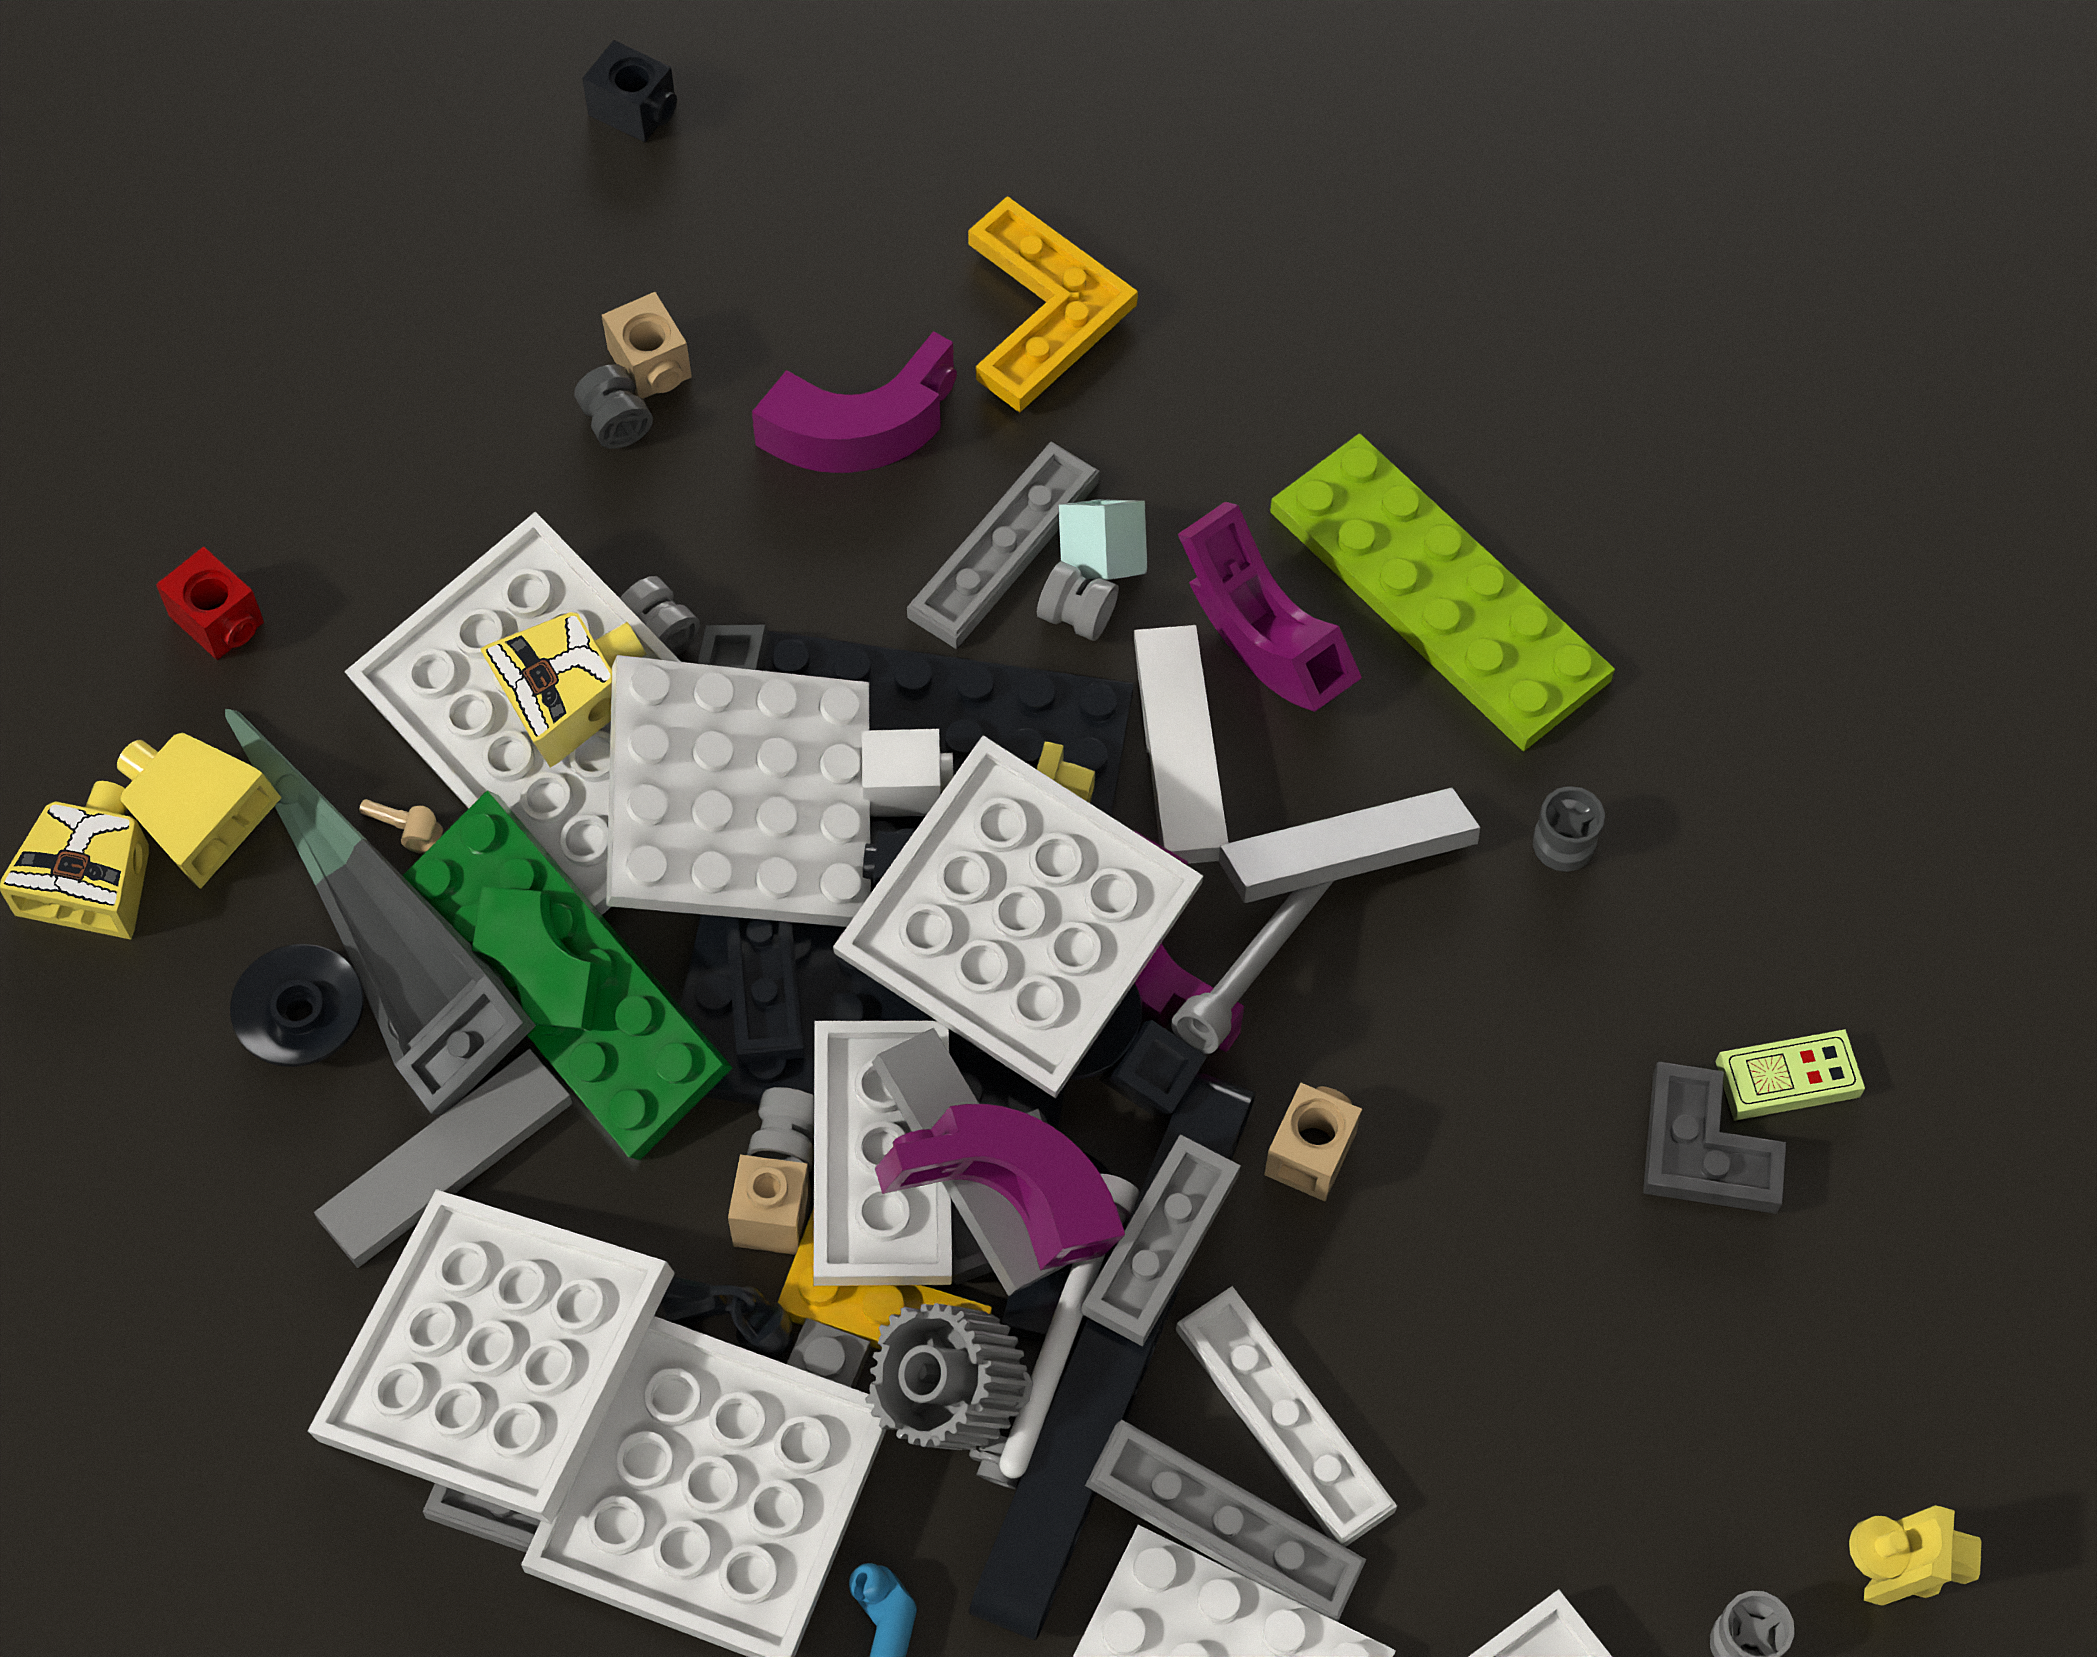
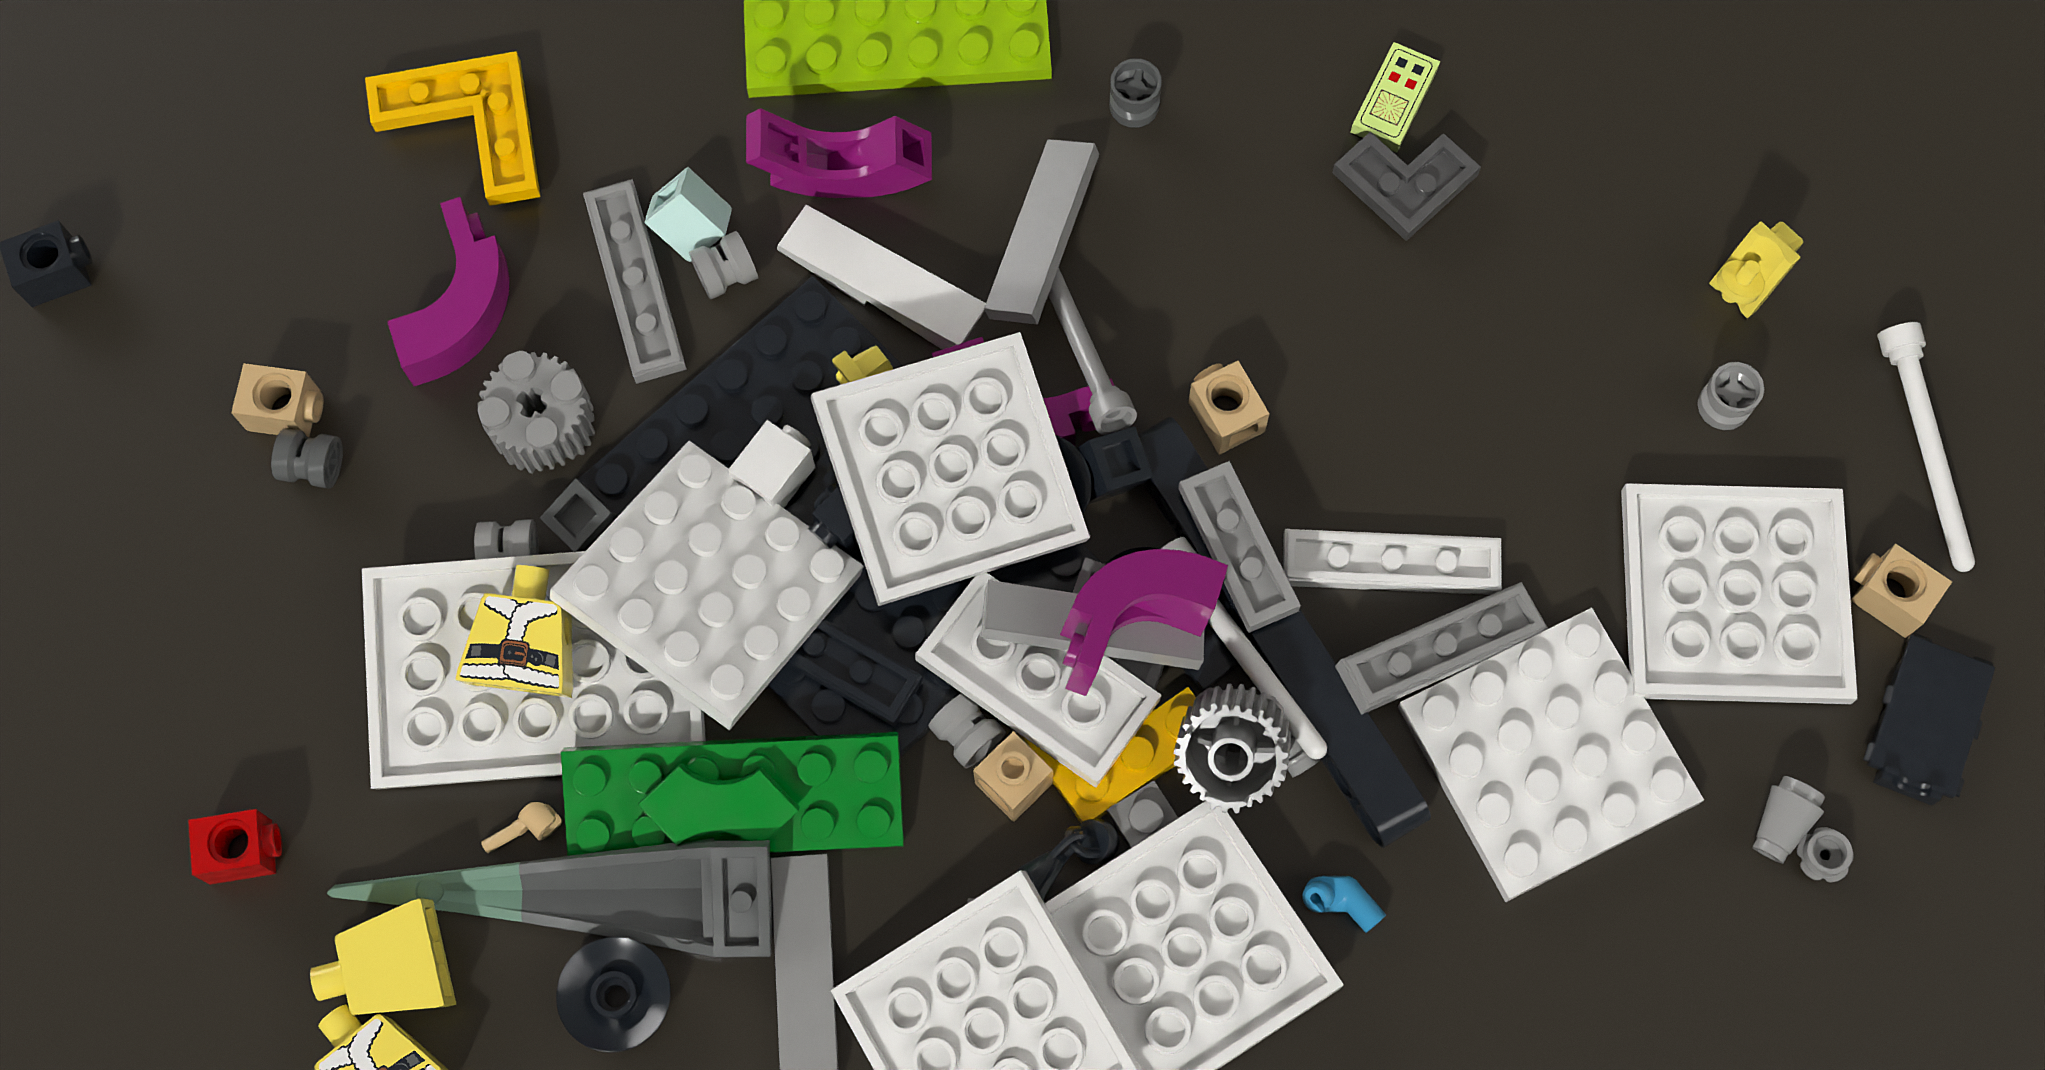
camera: 50 degrees left, 10 degrees up
(803, 549) = (521, 390): none -> light grey brick

